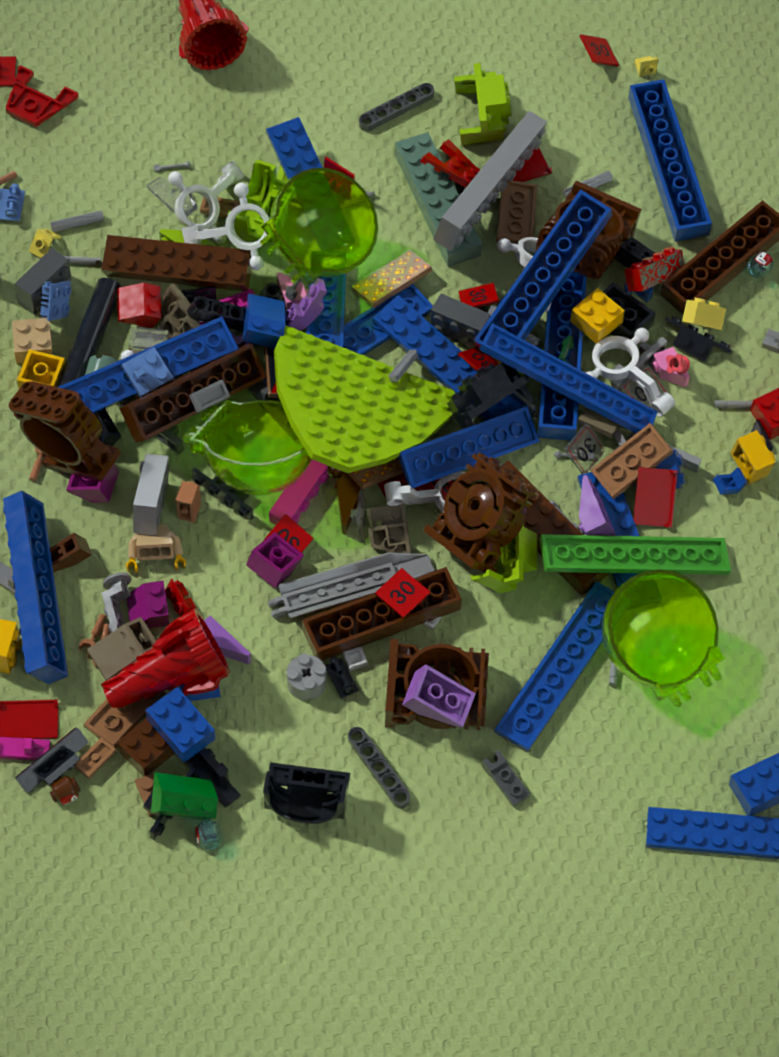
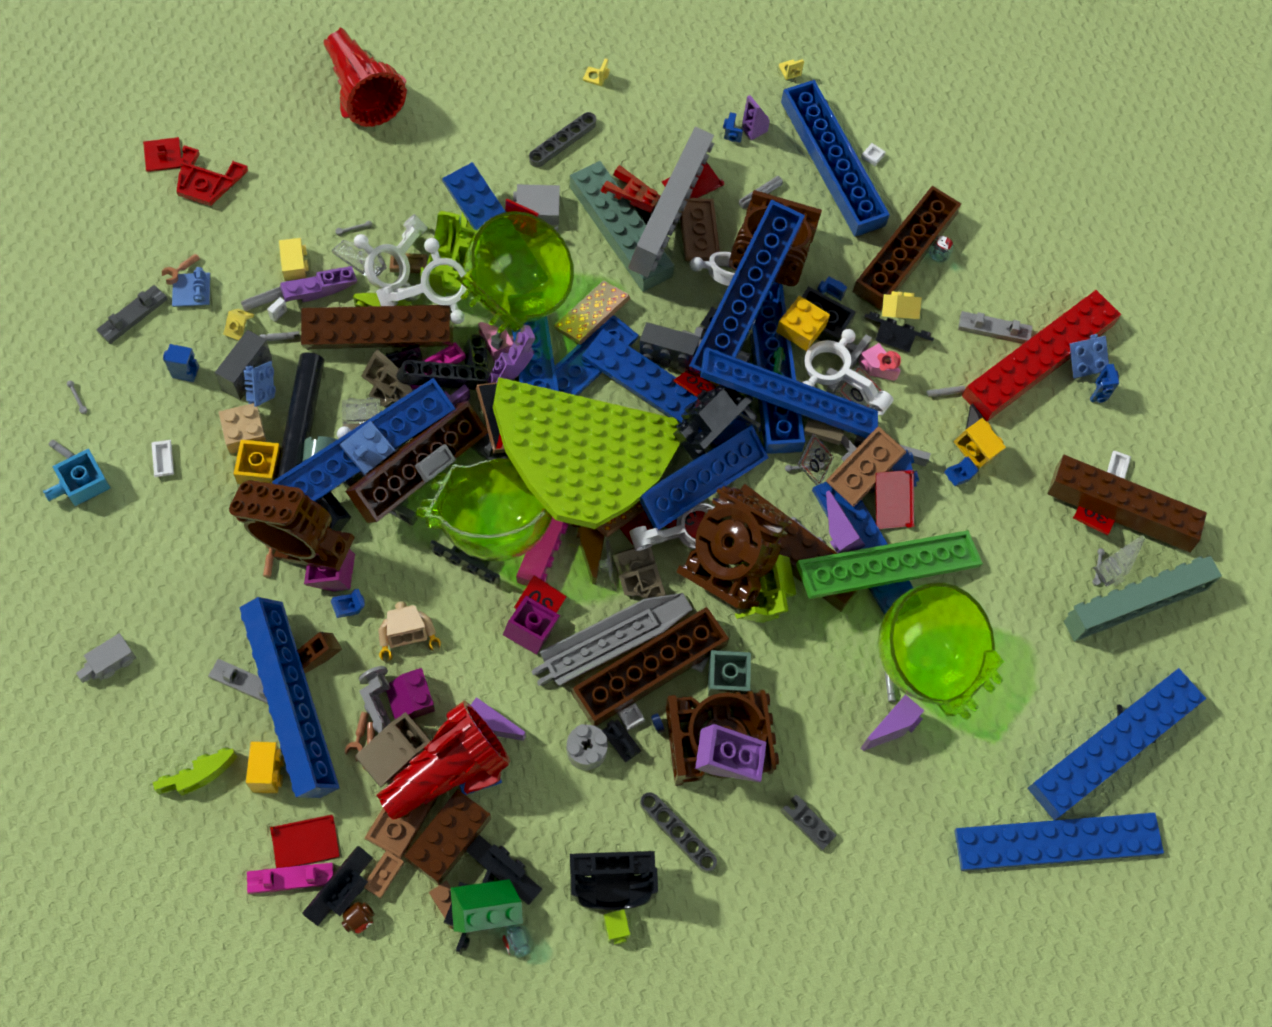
camera: 15 degrees left, 5 degrees up
(84, 234) = (277, 309): none -> white tile
(104, 516) = (348, 604): none -> blue bracket
(107, 188) = (292, 259): none -> light yellow brick
(132, 217) = (320, 286): none -> medium lavender slope
(139, 304) = (346, 375): red slope -> none
(150, 494) = (392, 577): light grey brick -> none
(176, 592) = (436, 675): red hinge -> none
(180, 724) = (468, 828): blue brick -> none
(188, 501) = (432, 576): nougat brick -> none
(263, 321) = (476, 375): blue slope -> none
(303, 838) = (616, 927): none -> lime brick
(363, 163) = (541, 199): none -> light grey brick
(379, 667) = (657, 723): none -> dark blue tile
(402, 593) = (670, 643): red piece -> none
(403, 365) = (622, 401): light grey axle -> none
(450, 46) = (603, 74): none -> light yellow bracket
(457, 628) = (729, 672): none -> sand green brick
(479, 296) = (681, 317): red piece -> none
(492, 101) = (657, 124): lime piece -> none
(556, 671) = (838, 693): blue plate -> none
(569, 120) = (731, 133): none -> blue bracket
(594, 111) = (755, 120): none -> medium lavender slope
(599, 50) = (745, 59): red piece -> none
(606, 703) = (902, 718): none -> medium lavender slope
(632, 252) = (825, 258): black brick -> none
(654, 269) = (846, 269): red brick -> none
(713, 162) = (873, 154): none -> white tile

